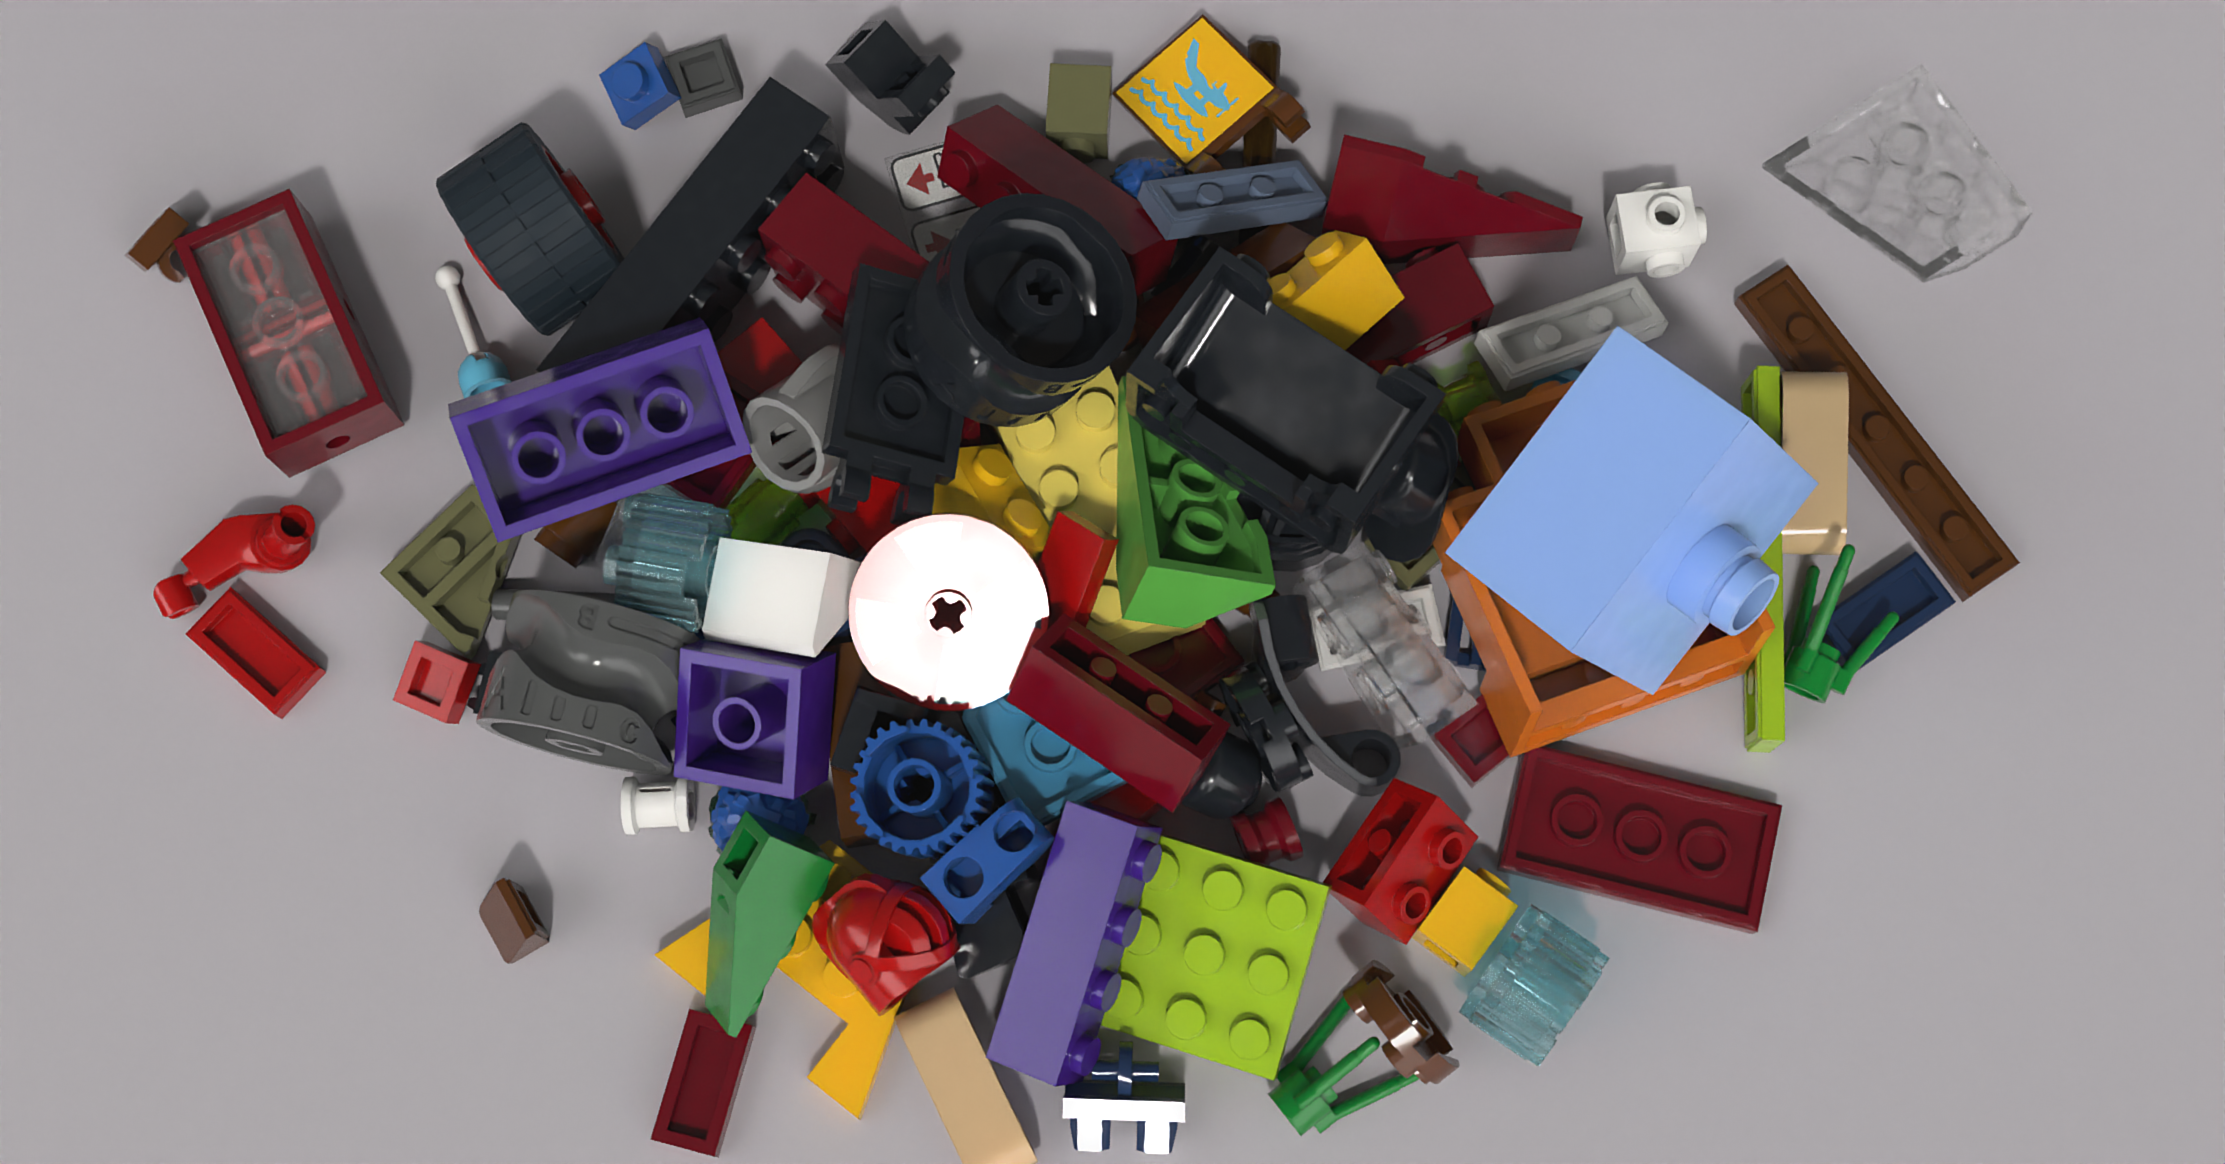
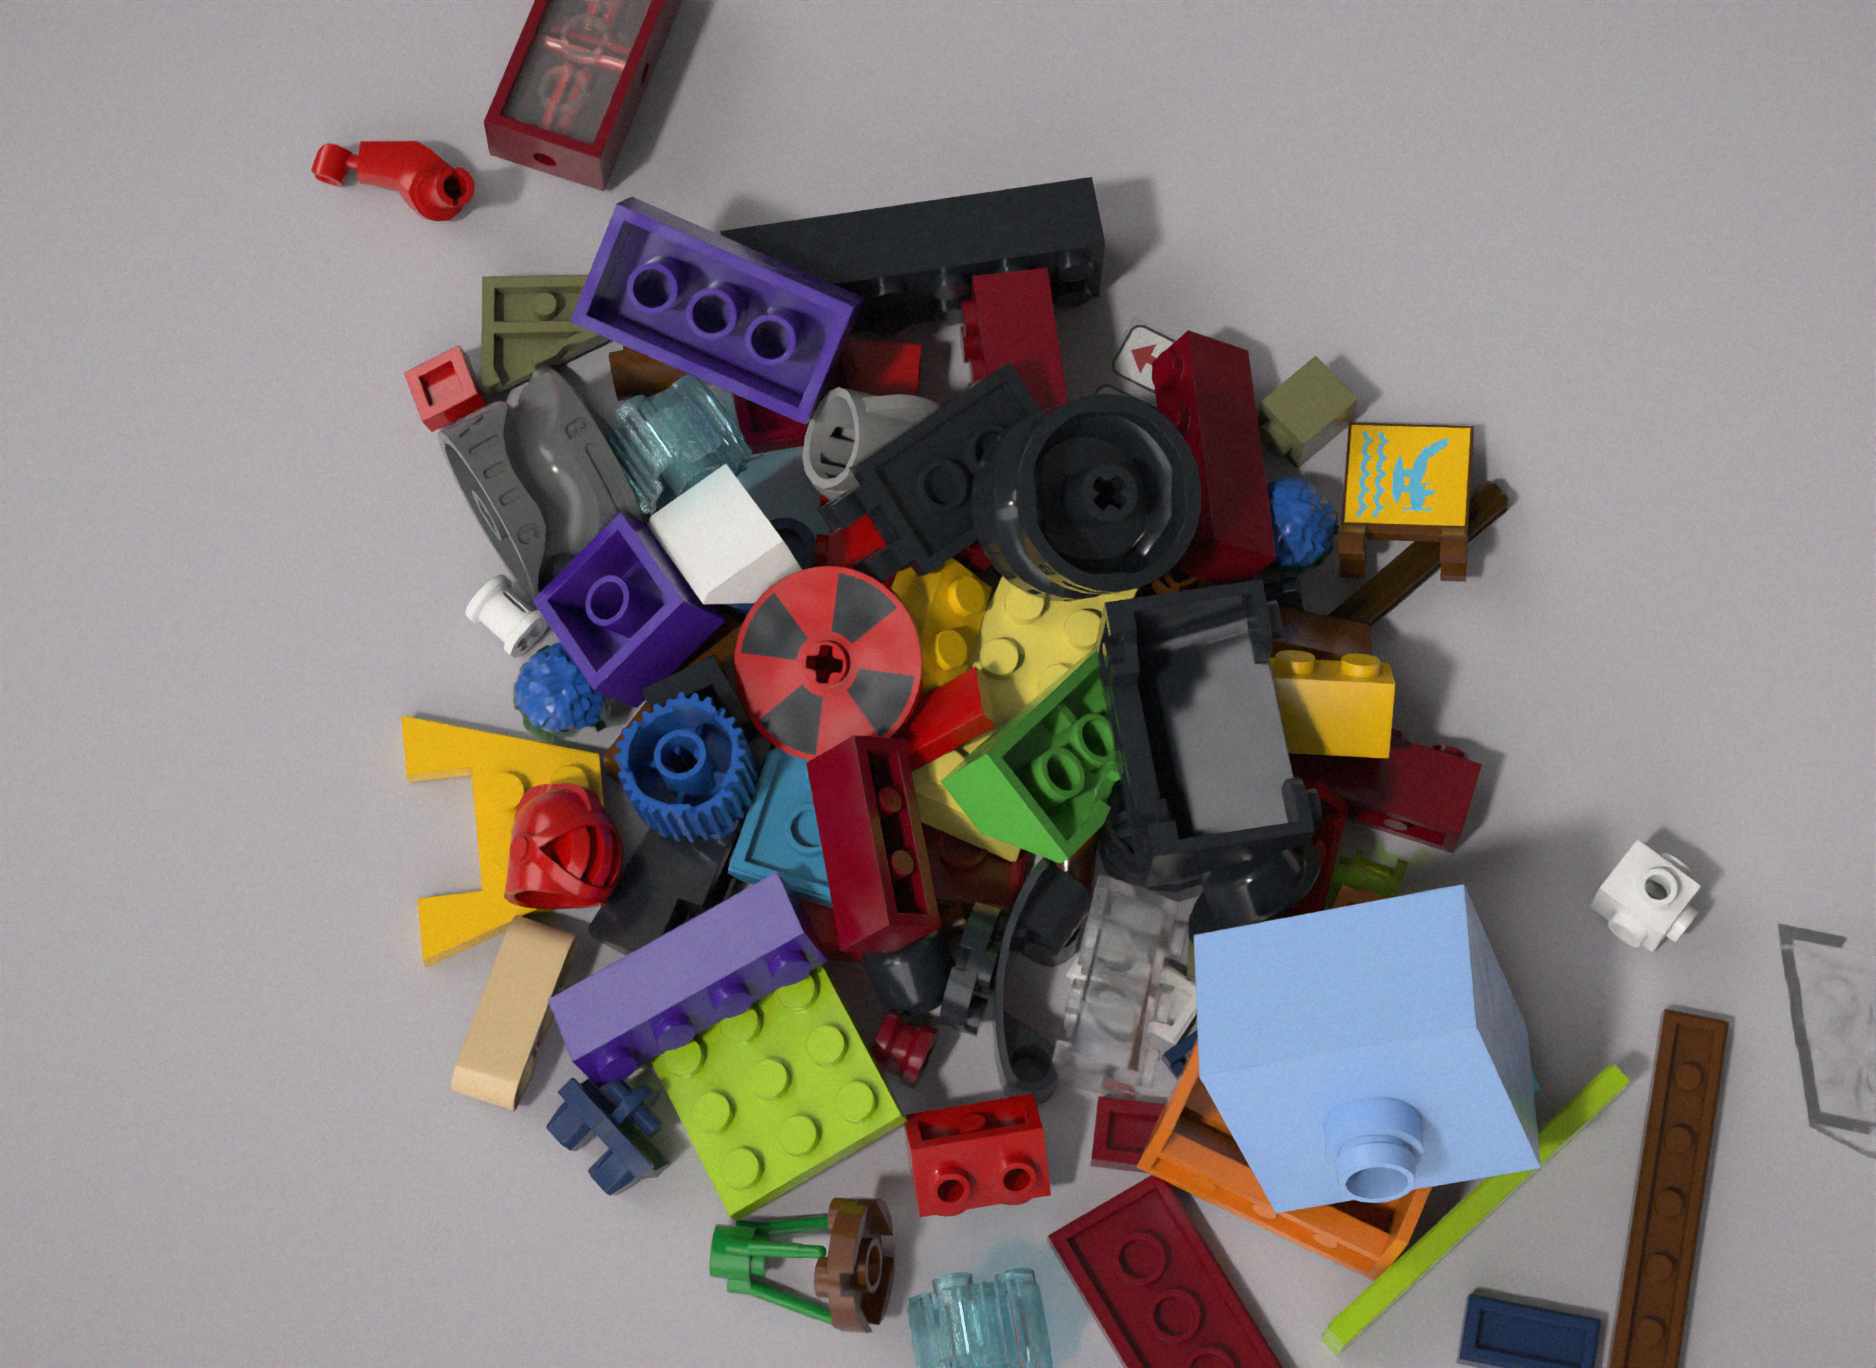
camera: 40 degrees right, 5 degrees down
(255, 653) = (347, 254): red tile -> none
(479, 369) = (693, 200): hinge -> none
(512, 921) = (332, 601): reddish brown slope -> none
(531, 227) = (821, 130): black wheel -> none
(640, 86) = (1008, 103): blue plate -> none
(702, 1085) = (346, 835): dark red tile -> none
(703, 78) = (1062, 139): dark grey tile -> none
(757, 904) = (508, 737): green slope -> none
(765, 513) = (780, 486): clear neon green brick -> none
(891, 76) = (1193, 260): black brick -> none
(987, 861) = (681, 862): blue leg -> none
(1232, 199) = (1343, 575): sand blue tile -> none
(1407, 208) = (1458, 699): dark red wedge -> none
(1466, 919) = (984, 1240): yellow brick -> none
(1567, 332) = (1514, 913): white tile -> none
(1808, 662) = (1429, 1319): green plant -> none
(1816, 437) = (1584, 1176): tan beam -> none

